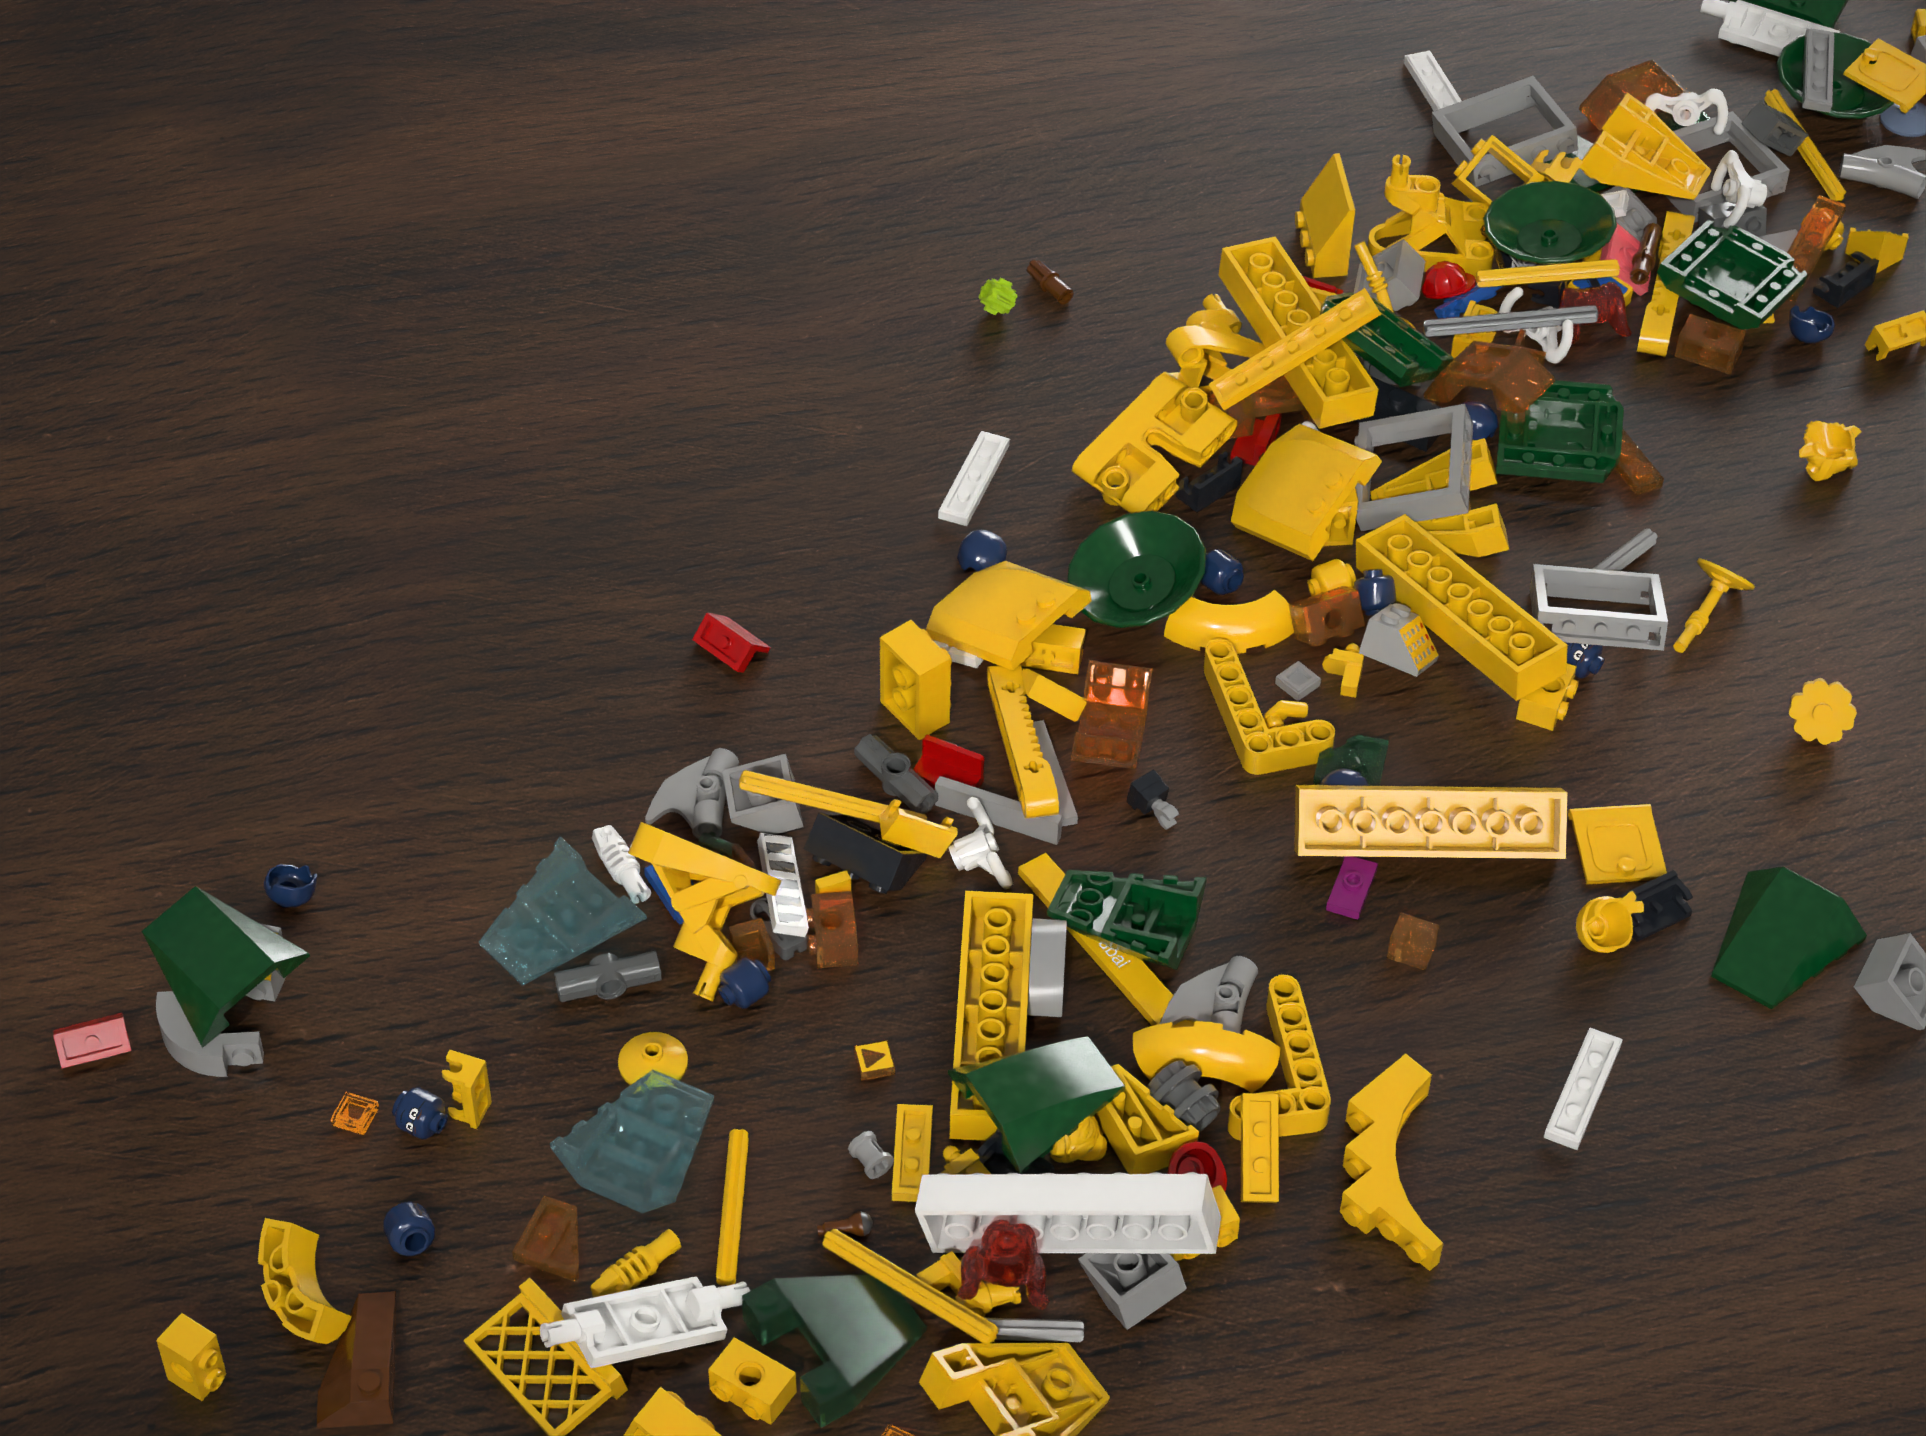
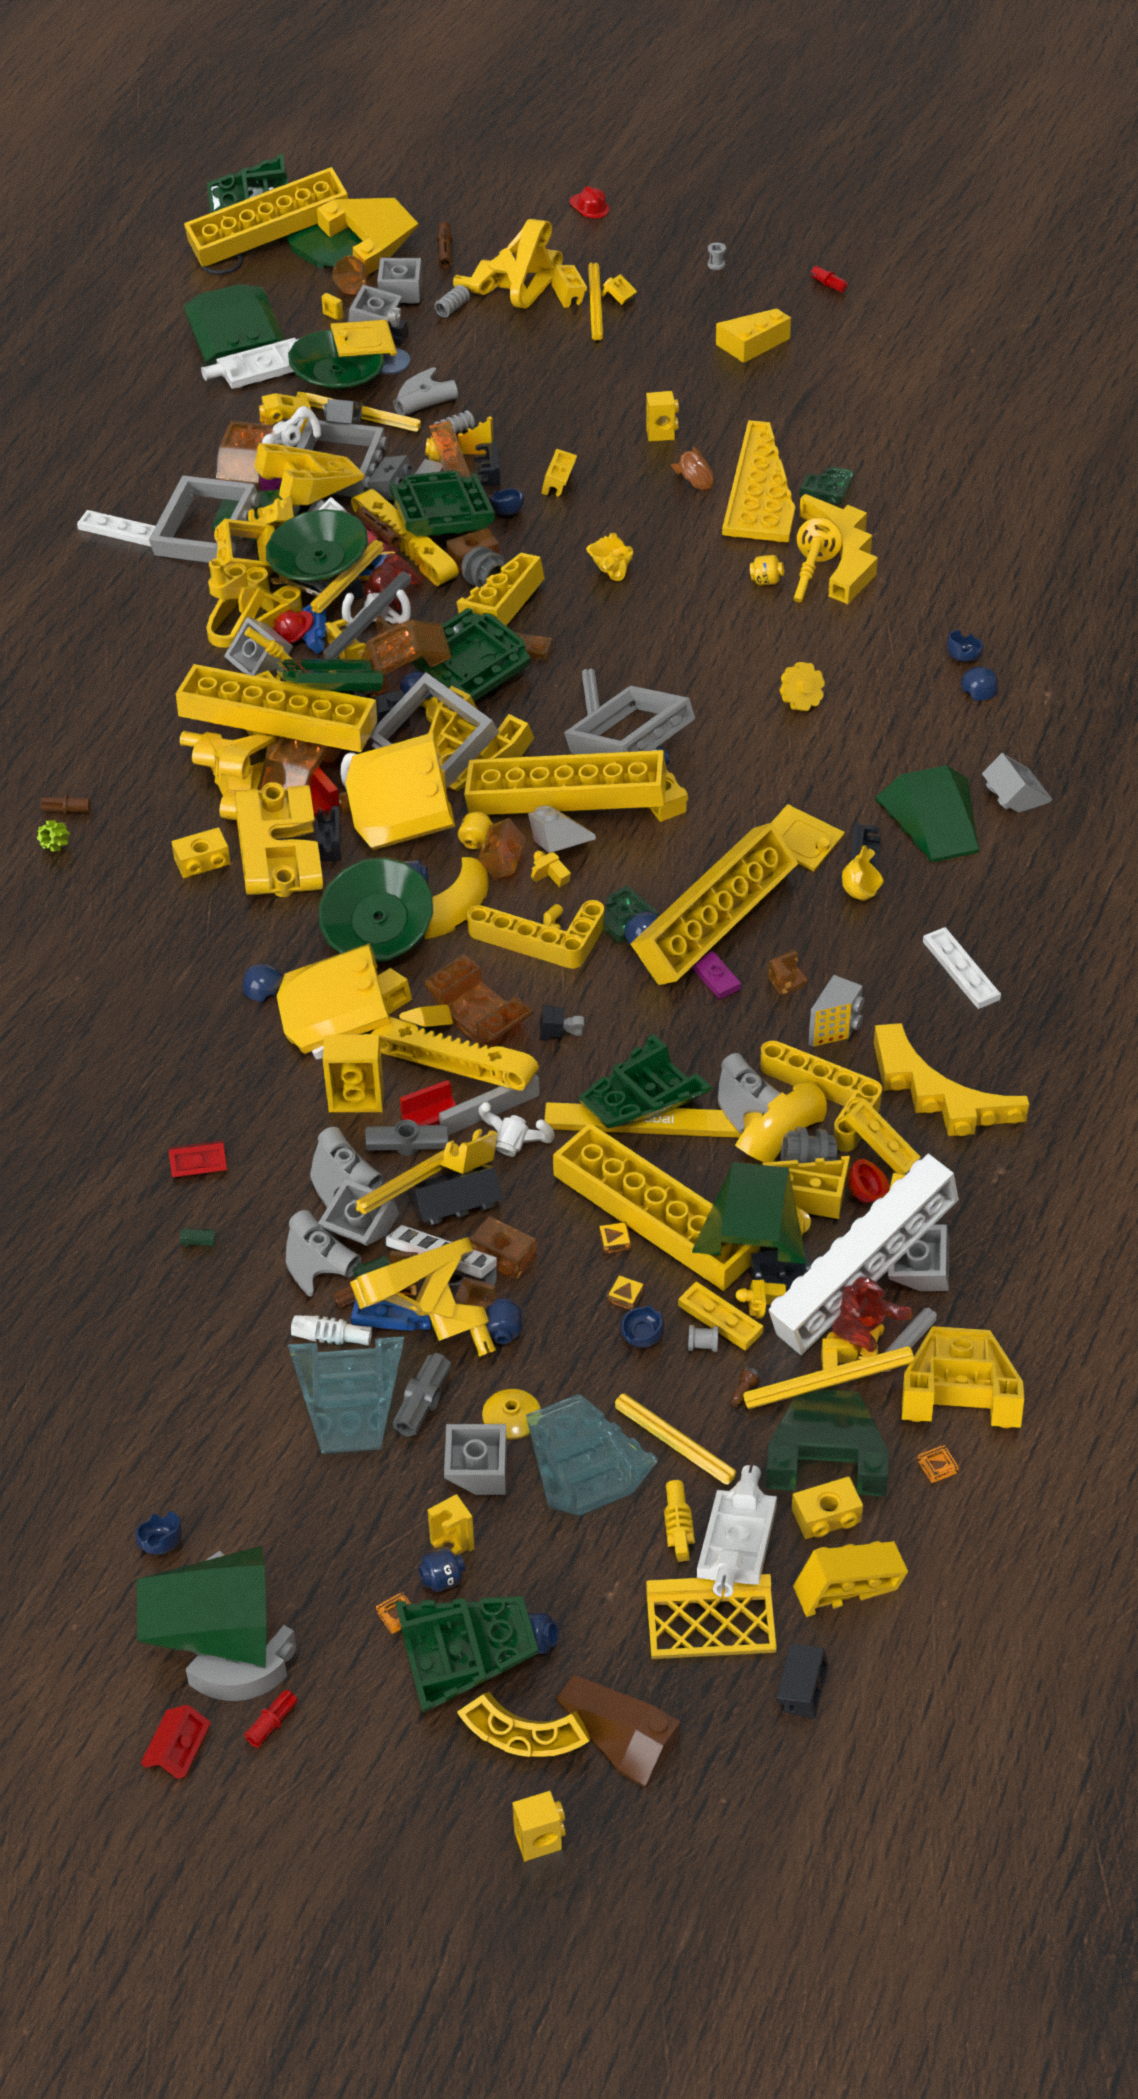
camera: 50 degrees left, 0 degrees up
(166, 1091) = (270, 1718): none -> red axle
(345, 1178) = (463, 1643): none -> dark green wedge
(551, 1239) = (614, 1555): clear orange wing -> none
(563, 1060) = (477, 1457): none -> light grey slope
(635, 694) = (197, 1236): none -> clear green pin
(815, 746) = (336, 1161): none -> light grey pin
(833, 883) = (470, 1224): yellow tile -> none
(837, 1097) = (643, 1326): none -> dark blue hair
(933, 1010) = (614, 1237): none -> tile
(973, 478) = (192, 947): white tile -> none
(1047, 967) = (649, 1146): light grey arch -> none
(1087, 406) = (201, 852): none -> yellow brick
(1294, 349) = (307, 712): yellow plate -> none
(1298, 681) = (530, 898): light grey tile -> none
(1327, 221) = (185, 635): yellow slope -> none
(1375, 591) = (507, 809): dark blue head -> none
(1386, 1008) = (836, 1012): none -> light grey slope
(1677, 402) = (506, 591): none -> yellow wedge
(1690, 366) = (481, 564): none -> dark grey piece
(1721, 582) = (660, 664): yellow dish -> none
(1736, 89) = (282, 405): none -> yellow tile
(1739, 188) = (384, 452): white piece -> none
(1818, 70) = (326, 362): light grey tile -> none
(1870, 219) = (461, 422): none -> light grey piece

